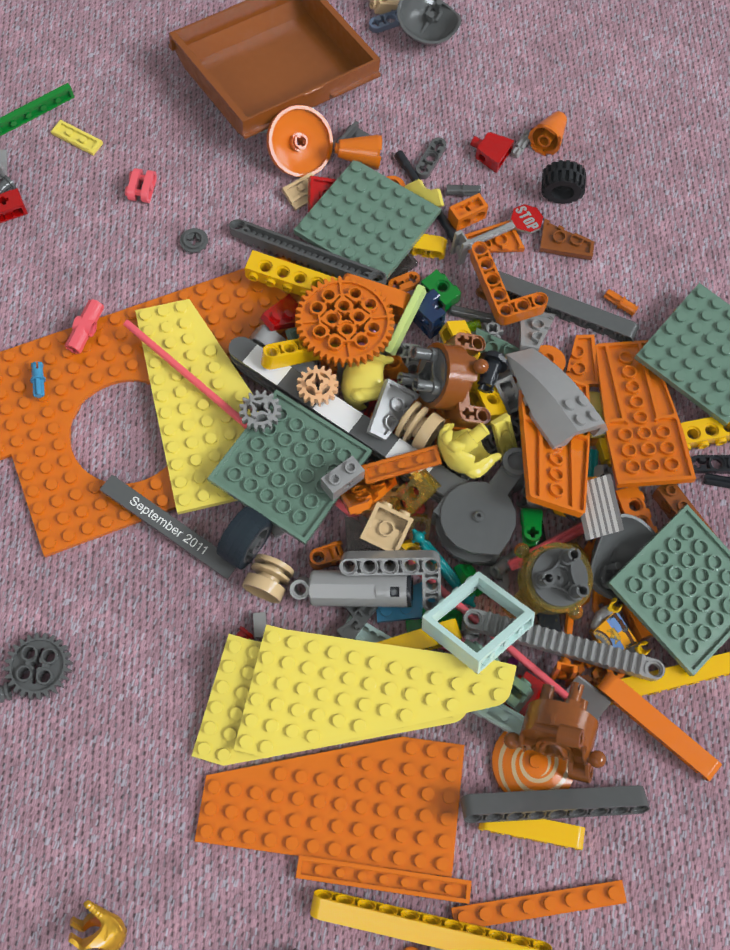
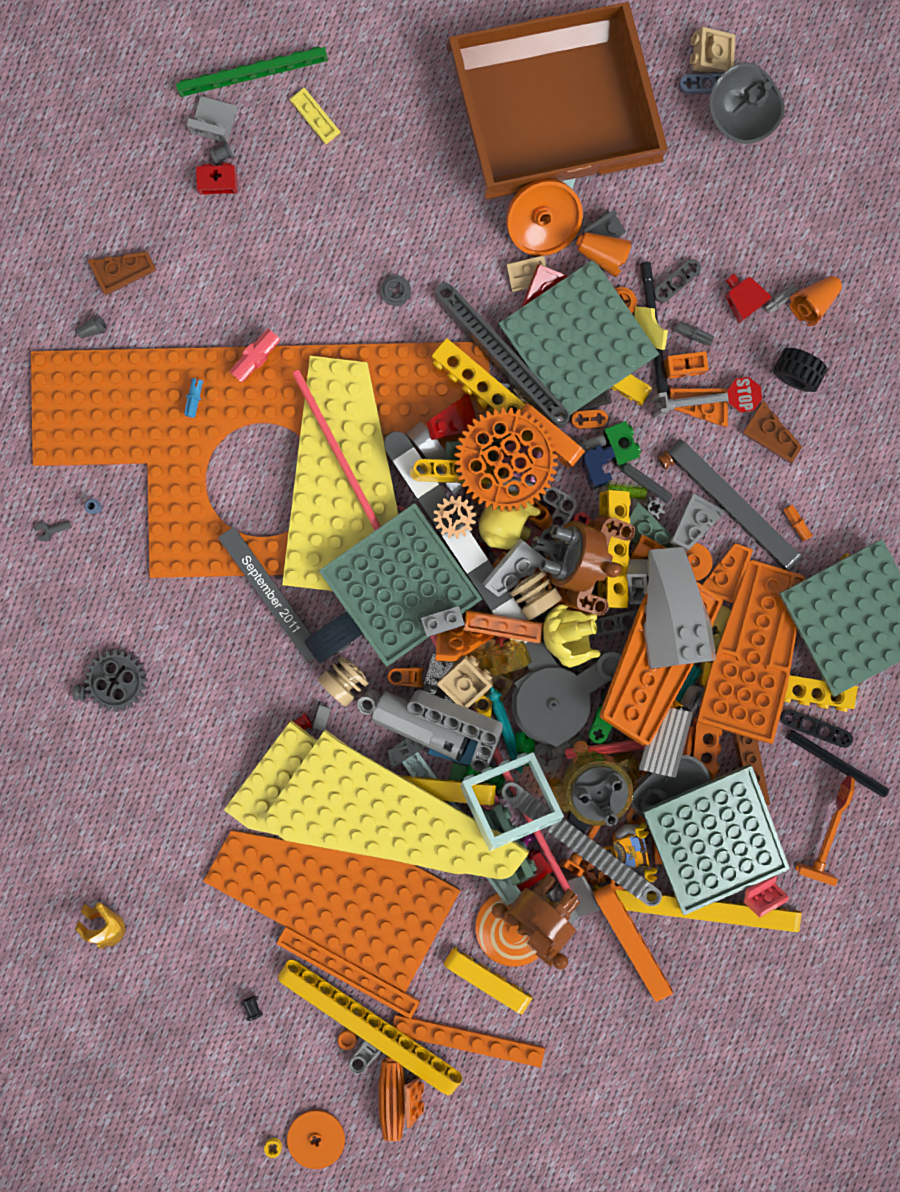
camera: 20 degrees right, 20 degrees up
(136, 178) = (361, 193): coral brick -> none
(262, 418) = (382, 529): light grey gear -> none
(406, 320) = (570, 473): yellowish green tile -> none
(497, 365) = (629, 560): black piece -> none
(498, 290) = (677, 470): orange beam -> none
(503, 434) = (614, 631): light yellow tile -> none
(554, 804) = (514, 971): dark grey beam -> none

